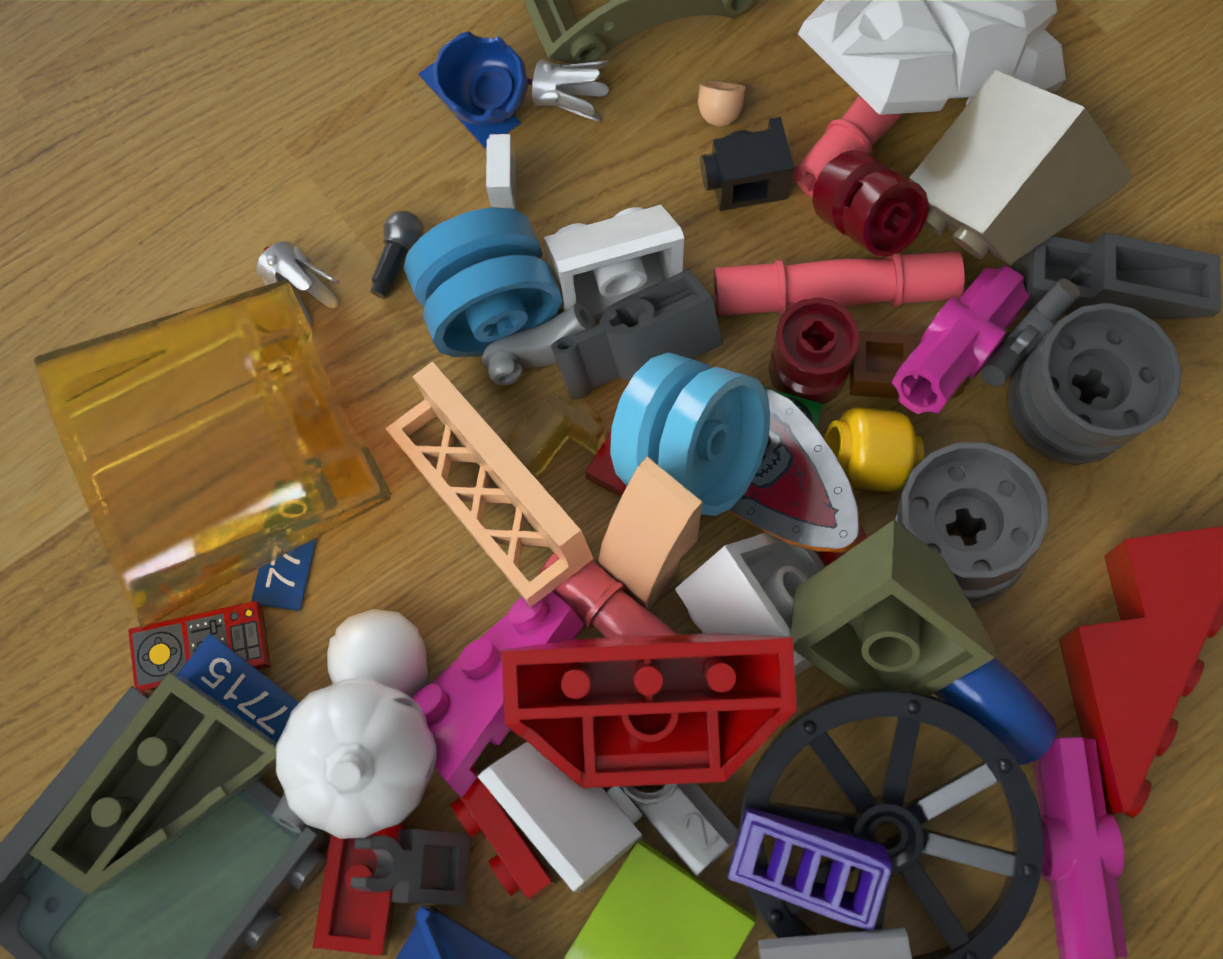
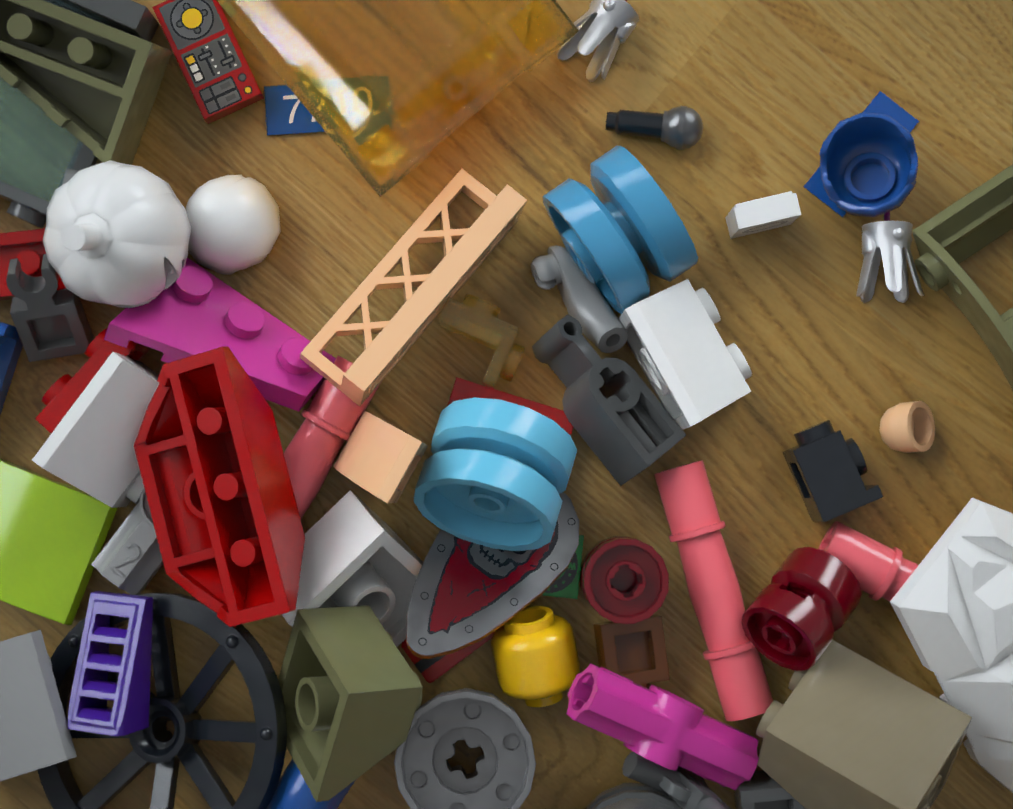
camera: 70 degrees right, 15 degrees up
(239, 687) = (174, 108): blue sticker -> none

